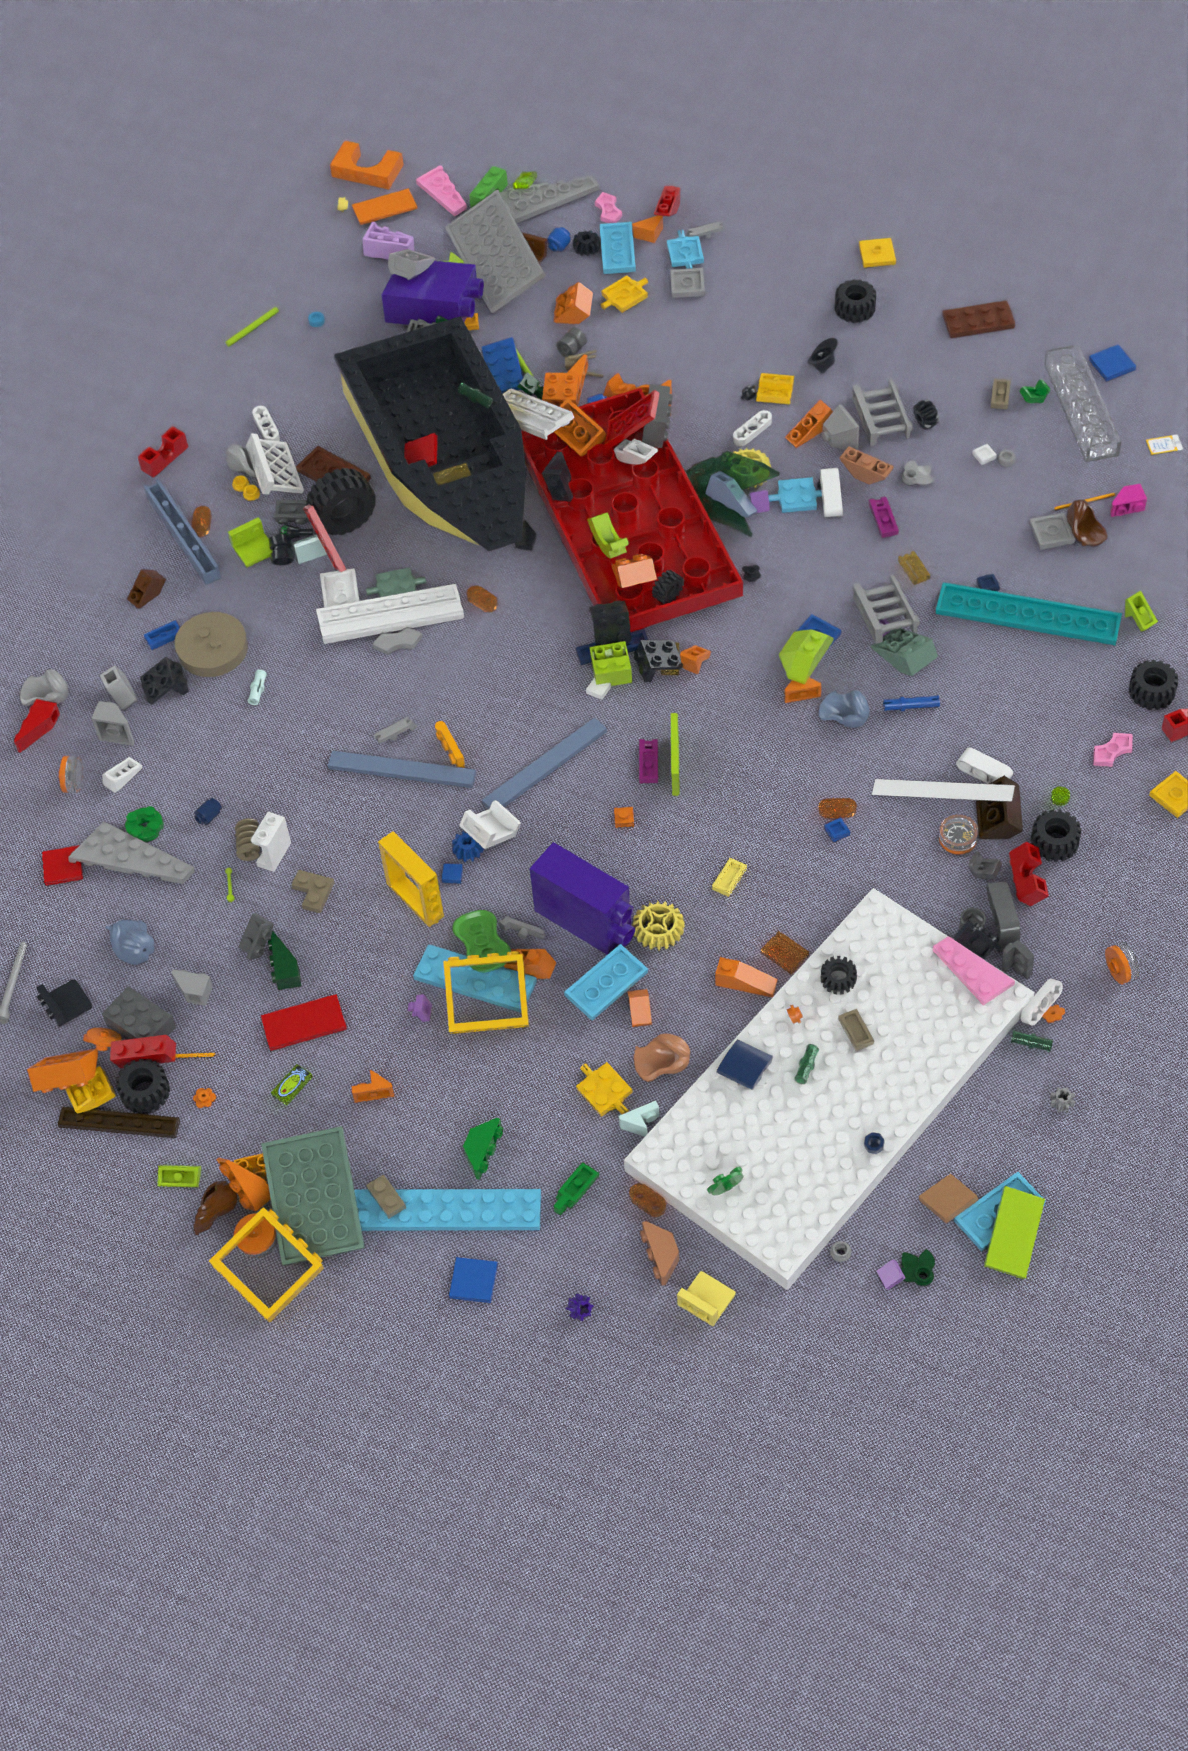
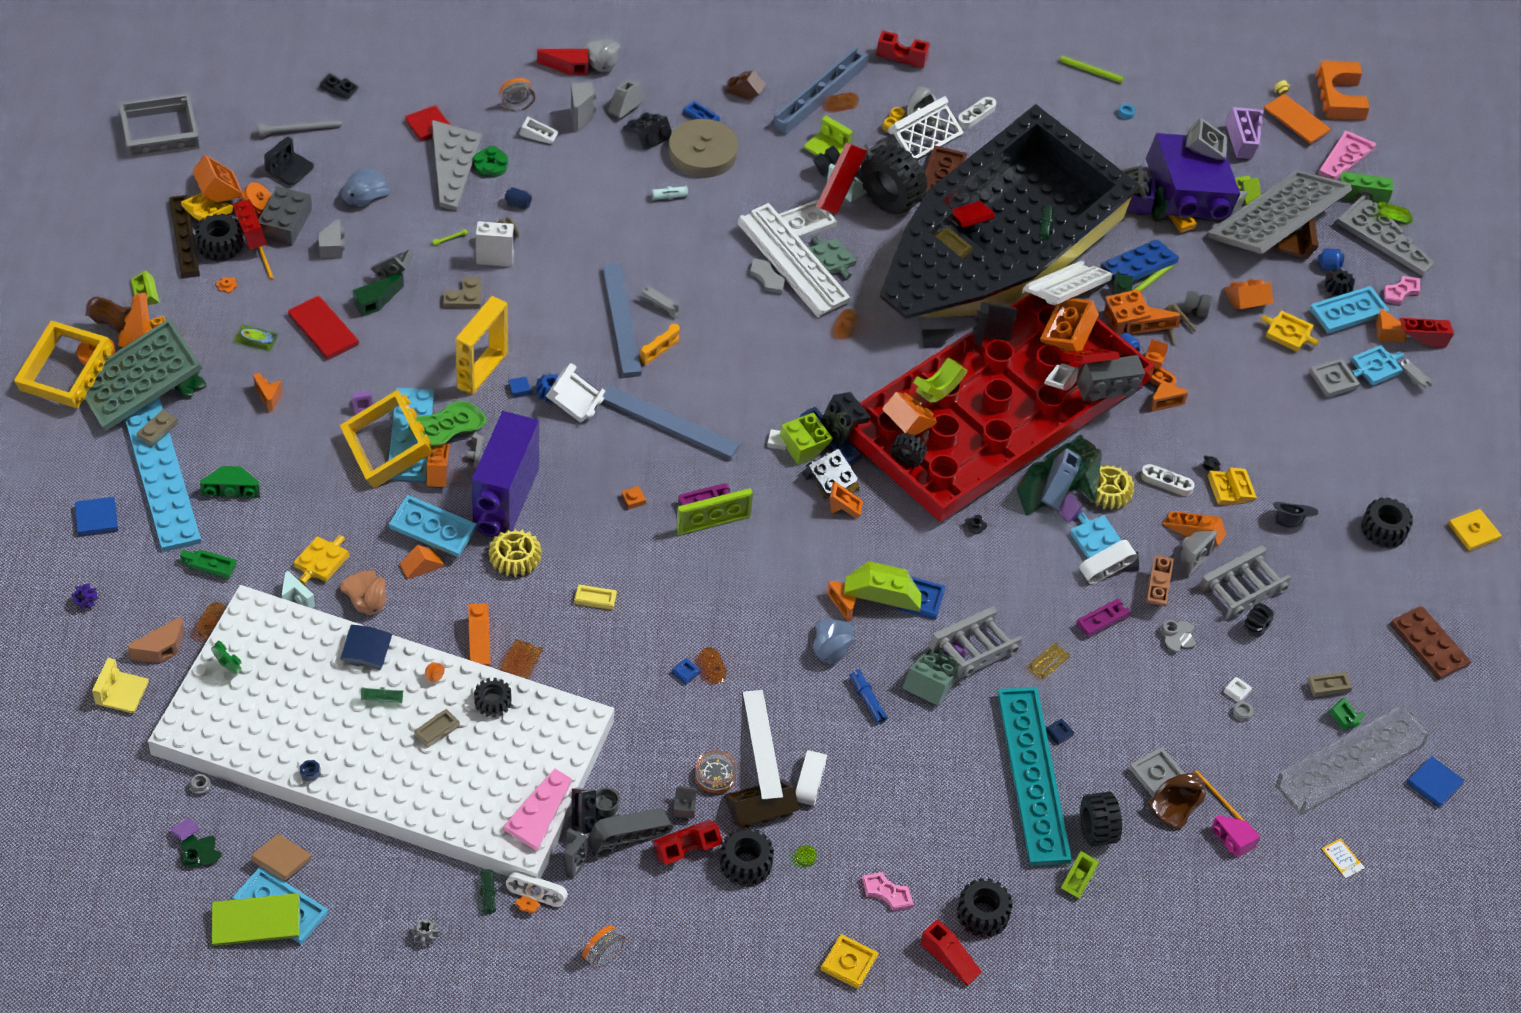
camera: 60 degrees right, 5 degrees down
(1095, 577) = (1101, 818): none -> black tyre

